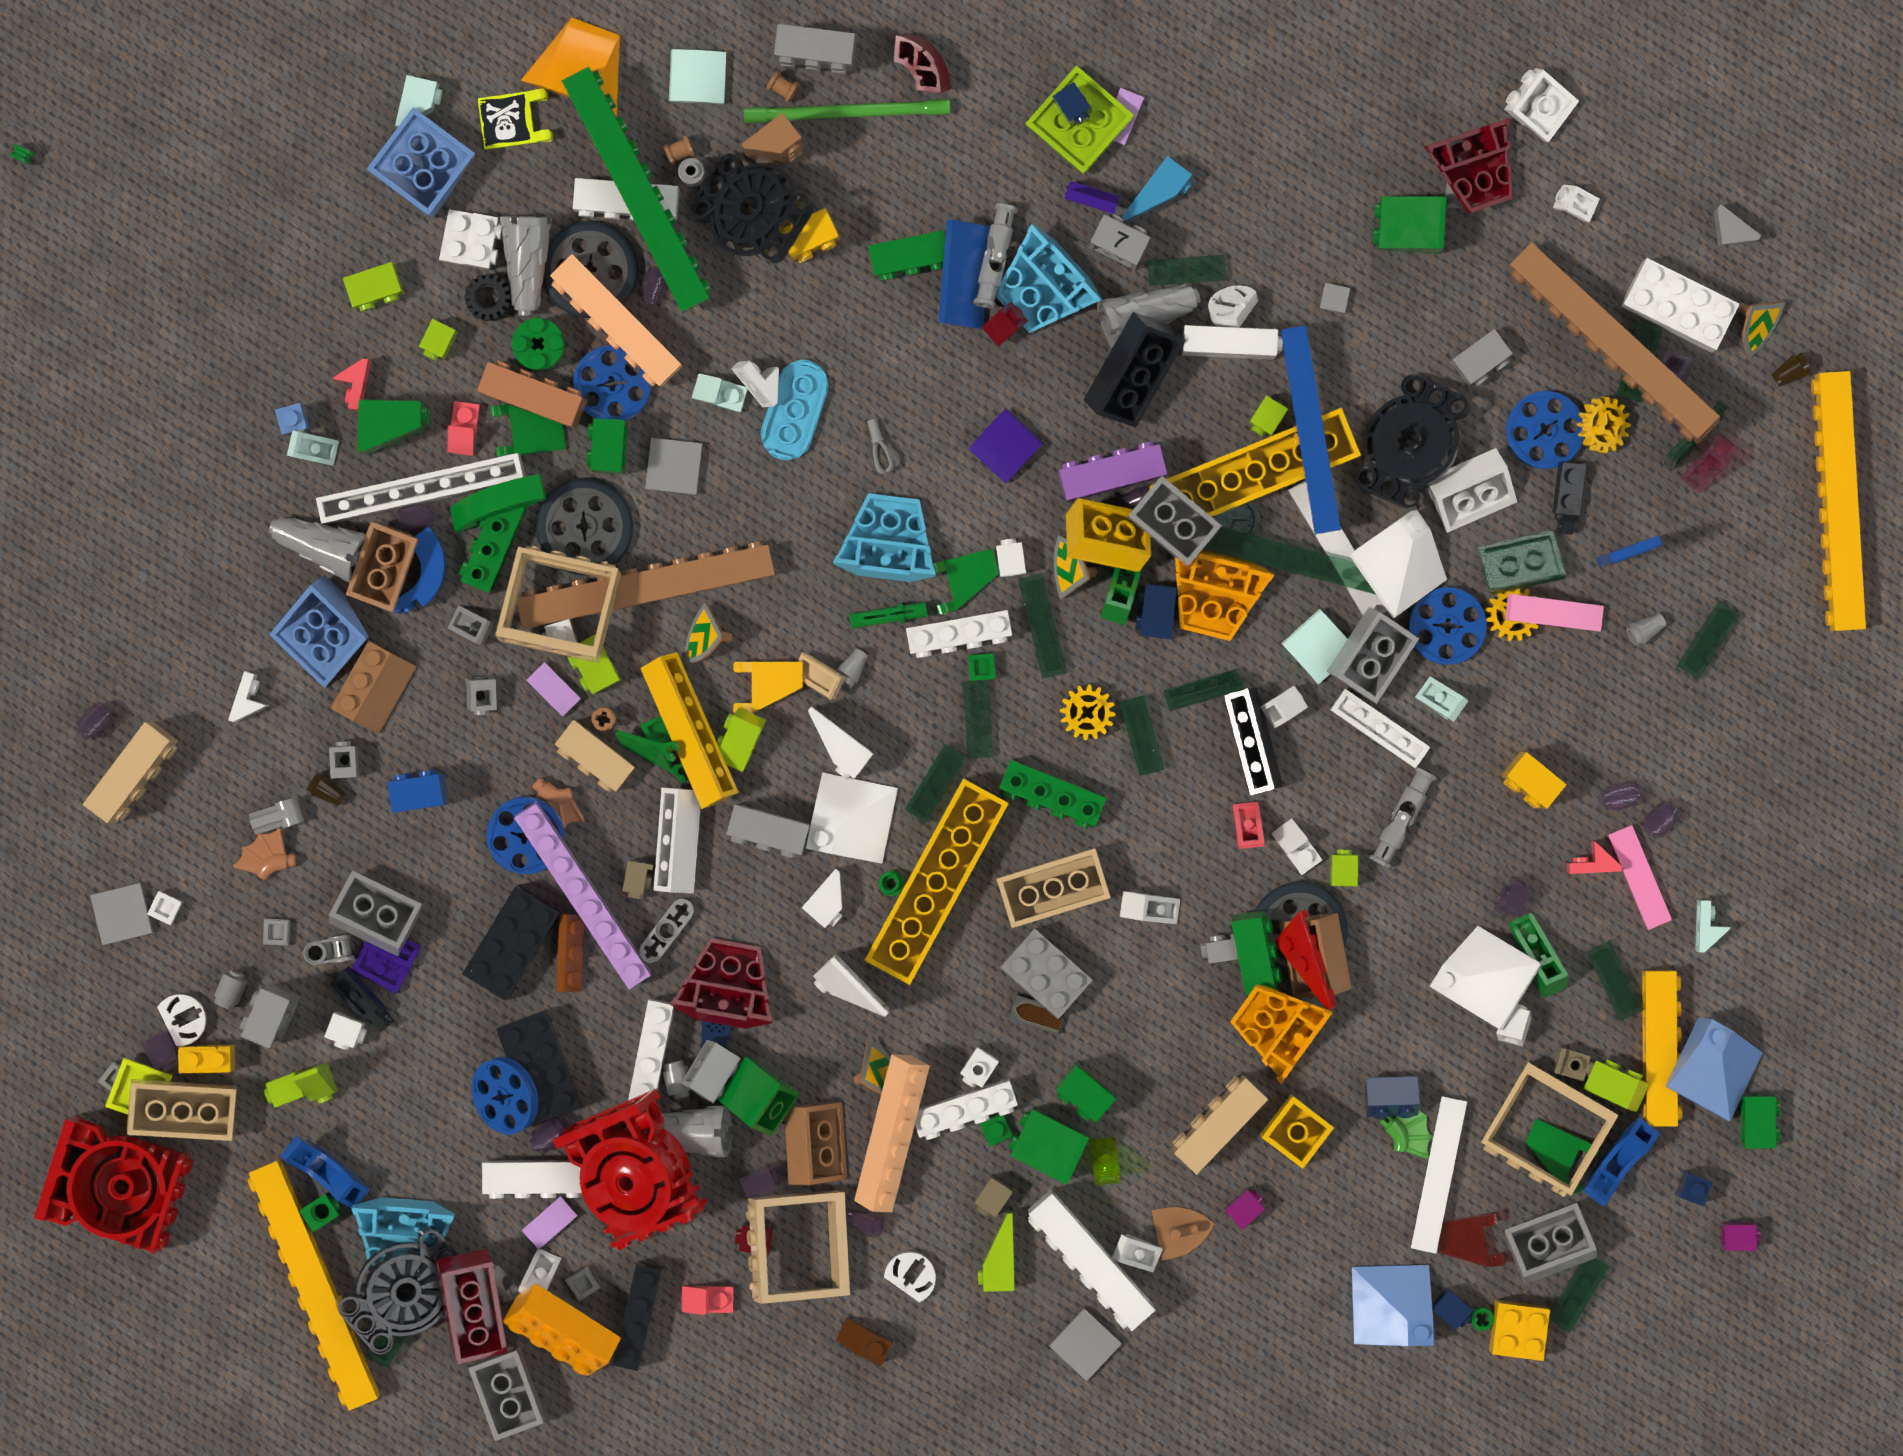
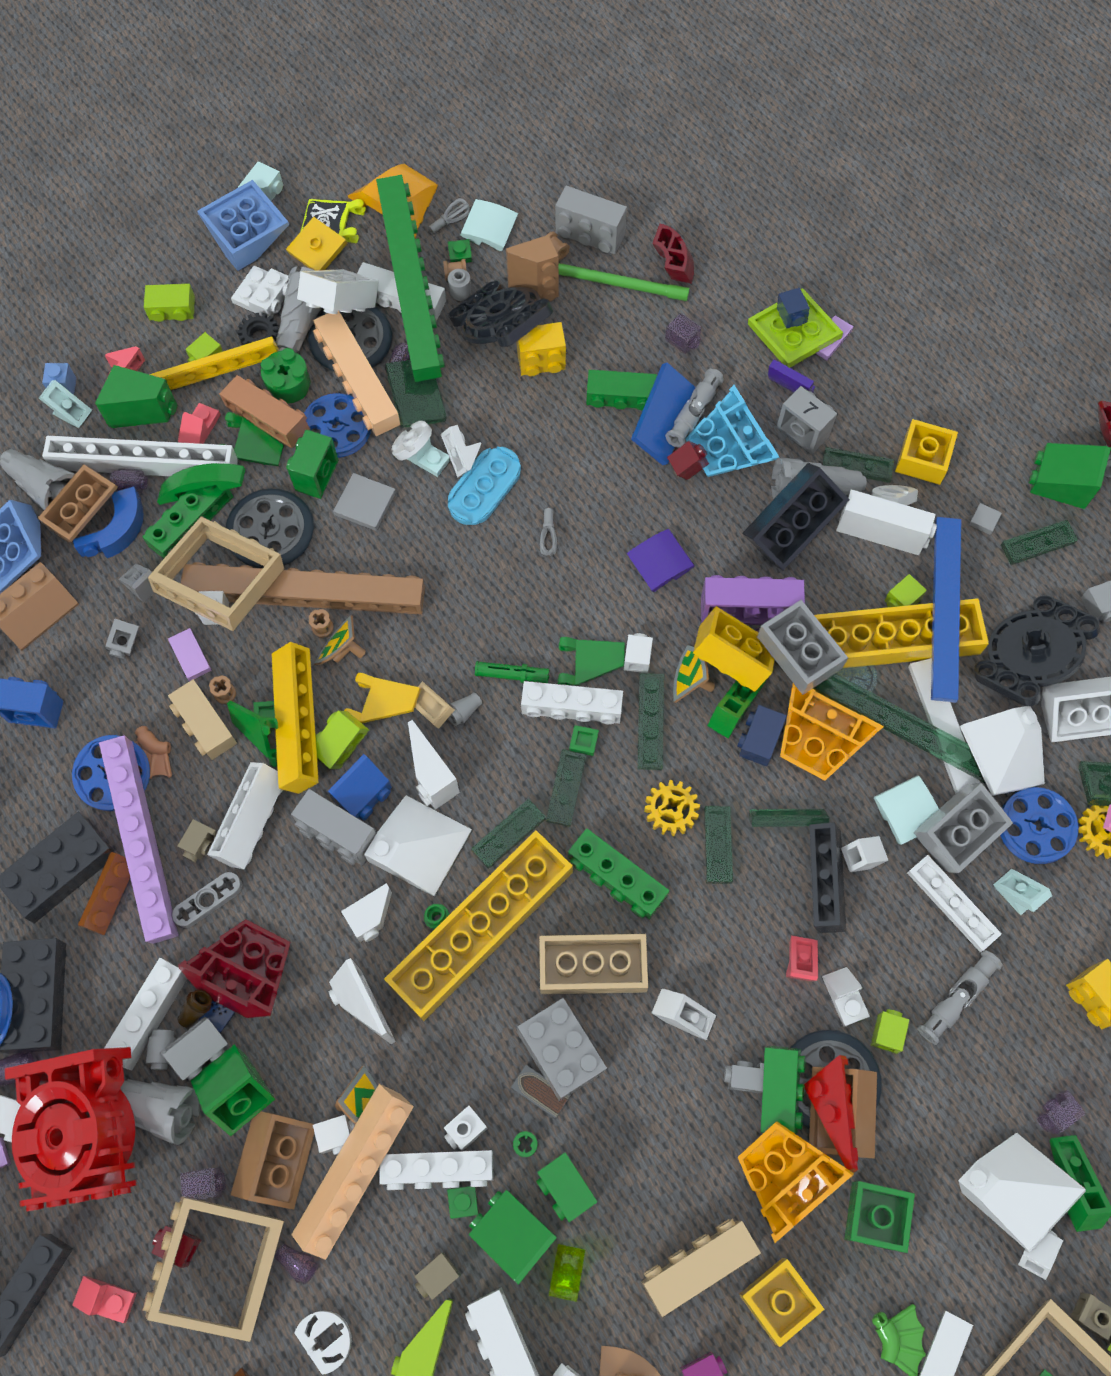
camera: 15 degrees right, 20 degrees down
(455, 357) = (218, 363): none -> yellow tile
(511, 163) = (316, 245): none -> yellow plate
(567, 236) = (337, 290): none -> white brick
(595, 675) = (232, 646): lime brick -> none
(643, 83) = (445, 219): none -> light grey piece
(675, 121) = (460, 250): none -> green plate
(680, 627) = (319, 629): none -> medium nougat bush
(688, 333) = (414, 399): none -> clear green tile
(695, 1034) = (194, 1007): none -> dark brown cone
(703, 386) = (411, 442): none -> white tile
(780, 785) = (360, 789): none -> blue slope
(862, 1106) = (333, 1134): none -> white brick
(888, 541) = (529, 609): medium azure wedge -> none
(959, 163) = (683, 333): none -> clear purple brick
(1044, 1063) = (516, 1143): none -> green bush
(1161, 188) = (854, 393): dark azure slope -> none
(1255, 241) = (926, 451): none -> yellow brick
(1367, 1036) = (879, 1216): none -> green brick
(1392, 1097) = (893, 1294): brick -> none
(1395, 312) = (1039, 542): none -> clear green plate

